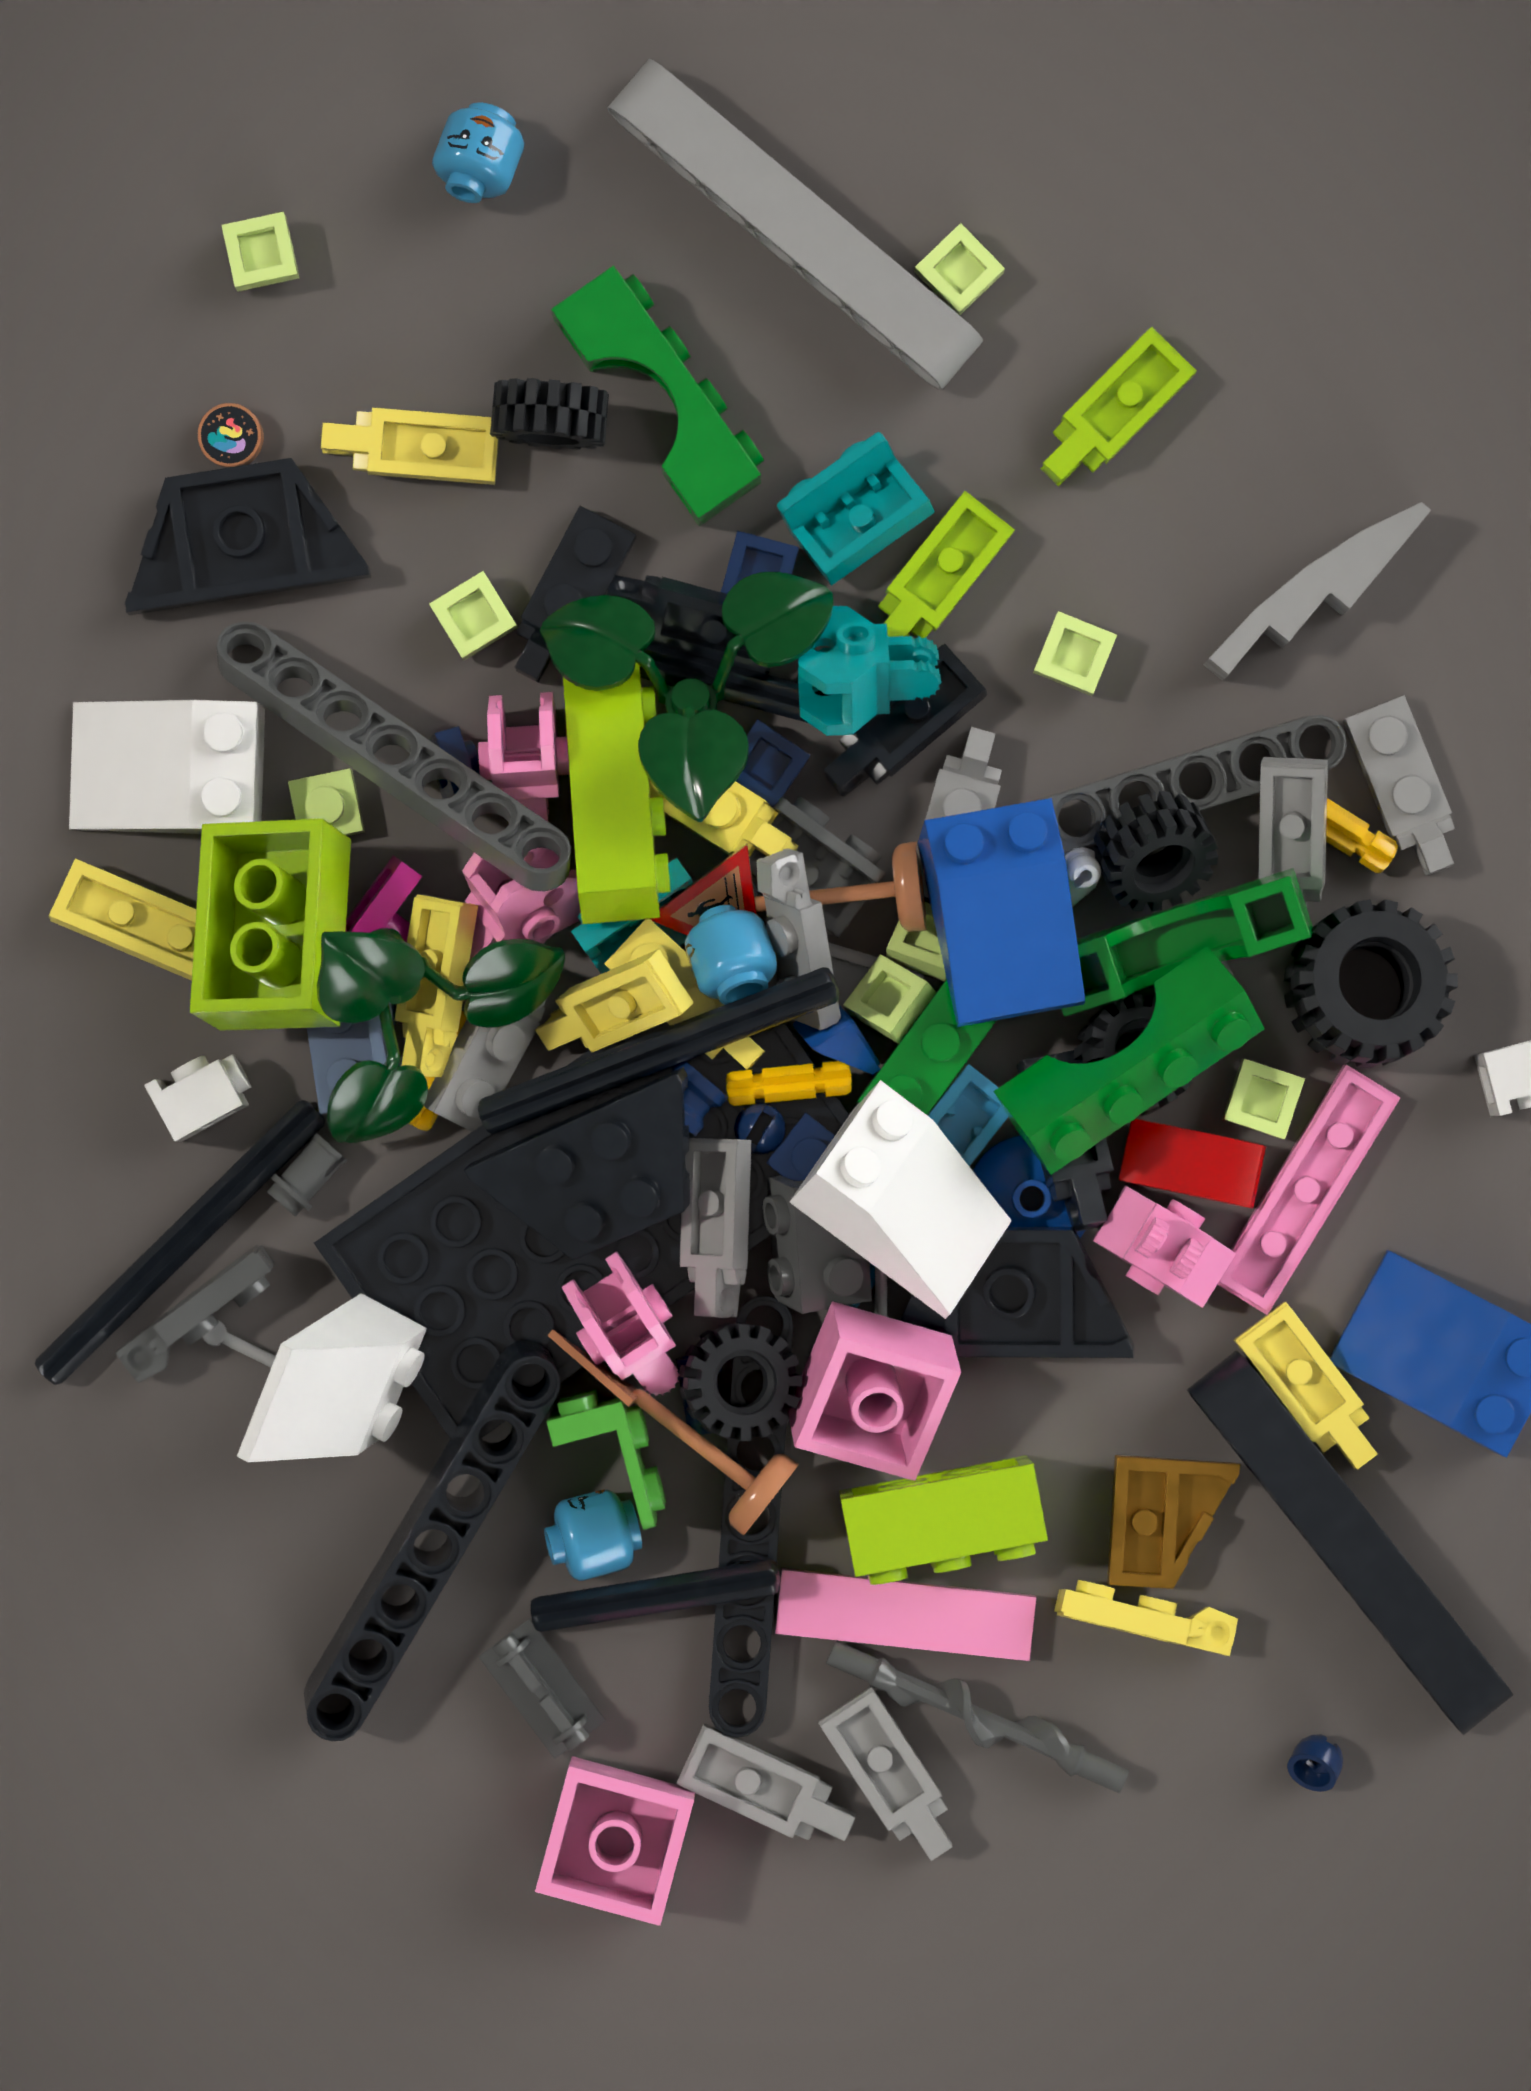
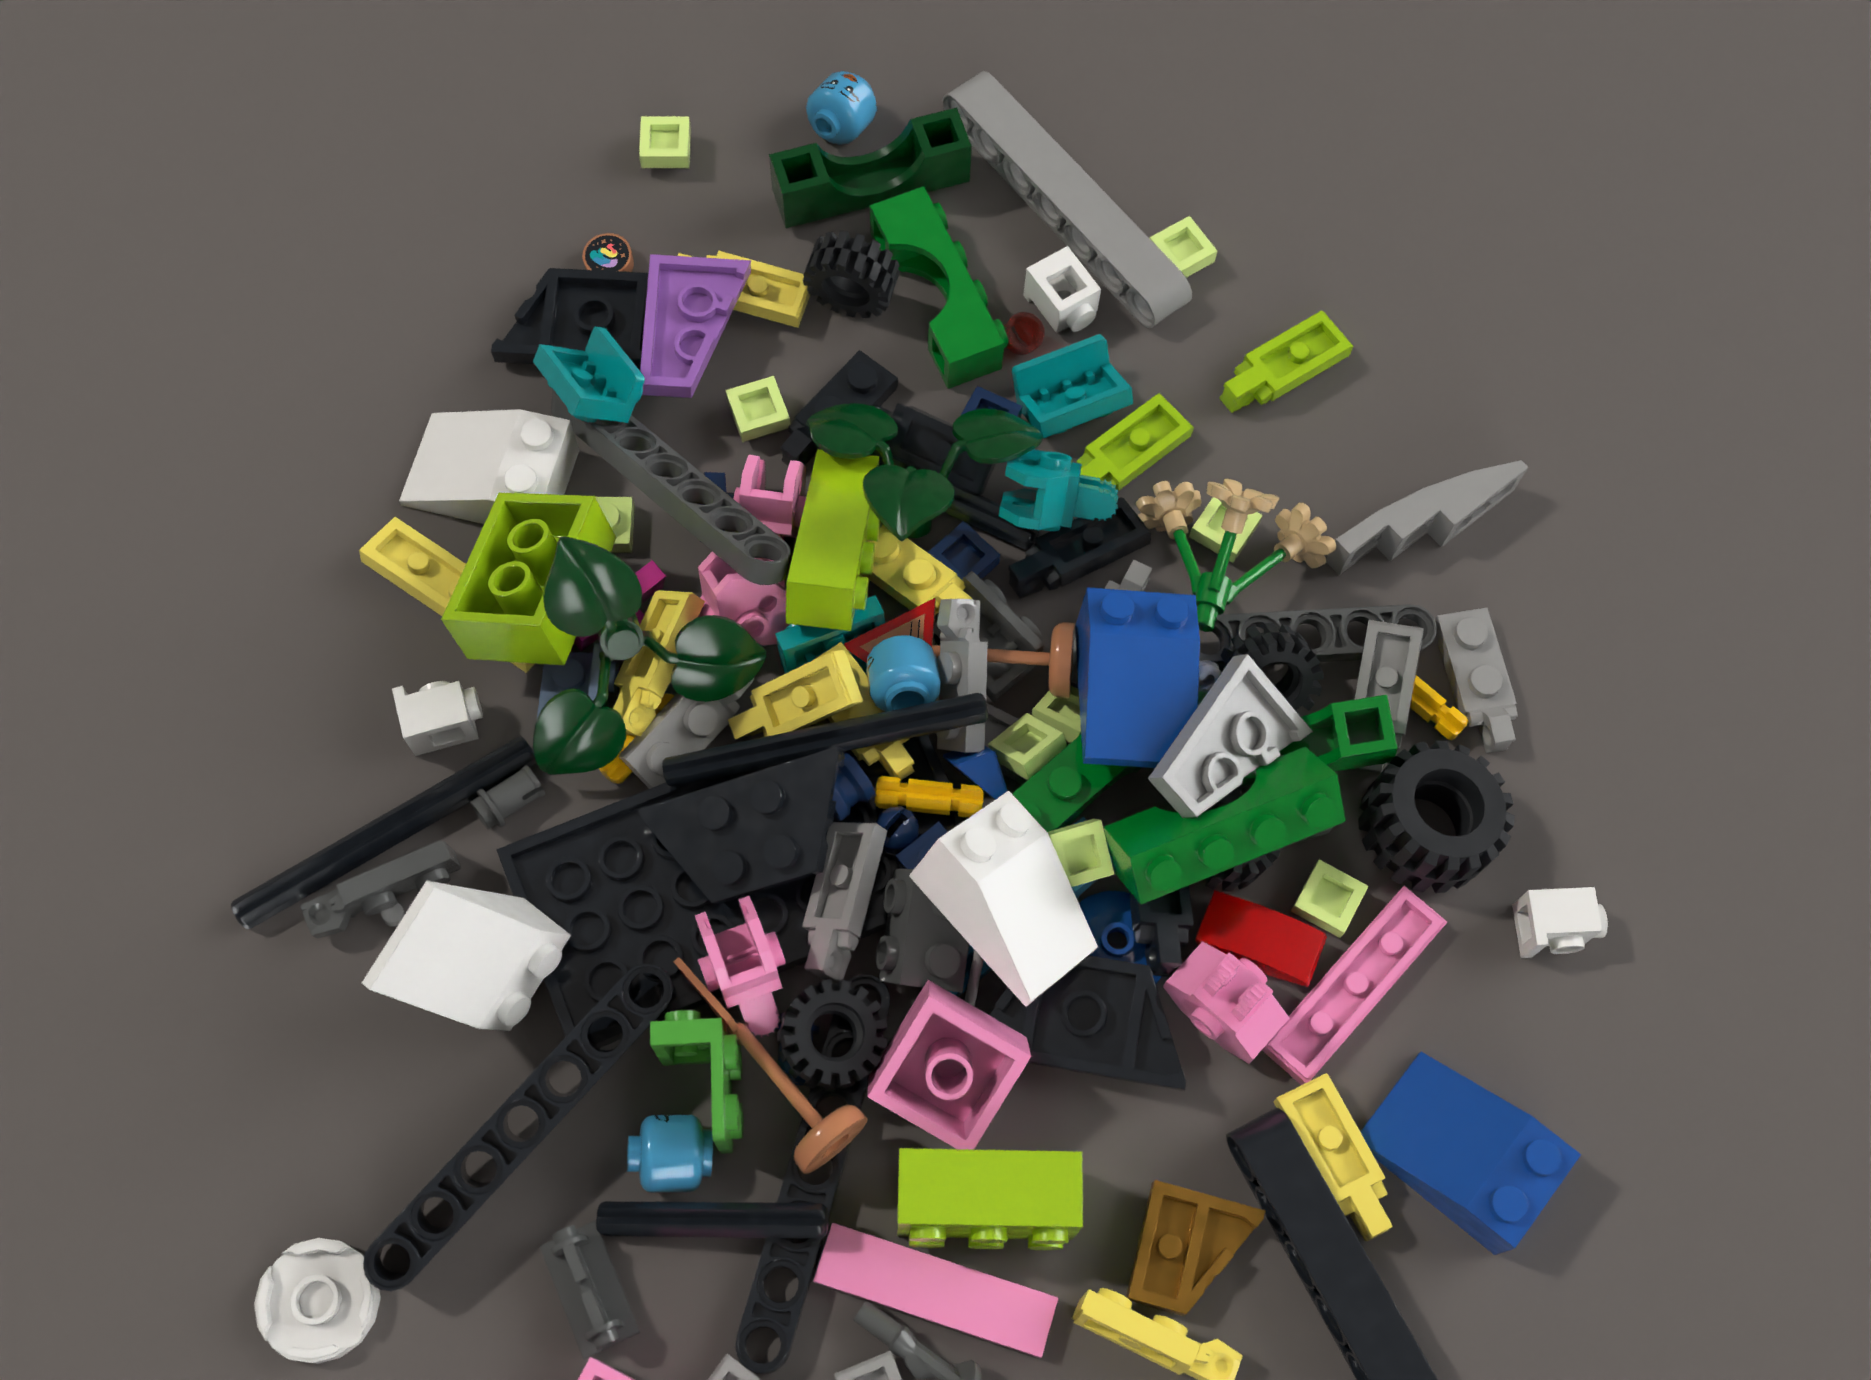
camera: 10 degrees right, 20 degrees down
(260, 1757) = (316, 1301): none -> white tile
(267, 640) = (593, 381): none -> teal bracket
(357, 524) = (685, 318): none -> medium lavender wing
(572, 231) = (819, 185): none -> dark green arch
(790, 431) = (1029, 330): none -> clear red hinge
(814, 348) = (1062, 291): none -> white brick
(972, 1119) = (1083, 851): none -> yellowish green plate
(1083, 677) = (1172, 513): none -> tan plant
(1115, 964) = (1226, 738): none -> light grey wing

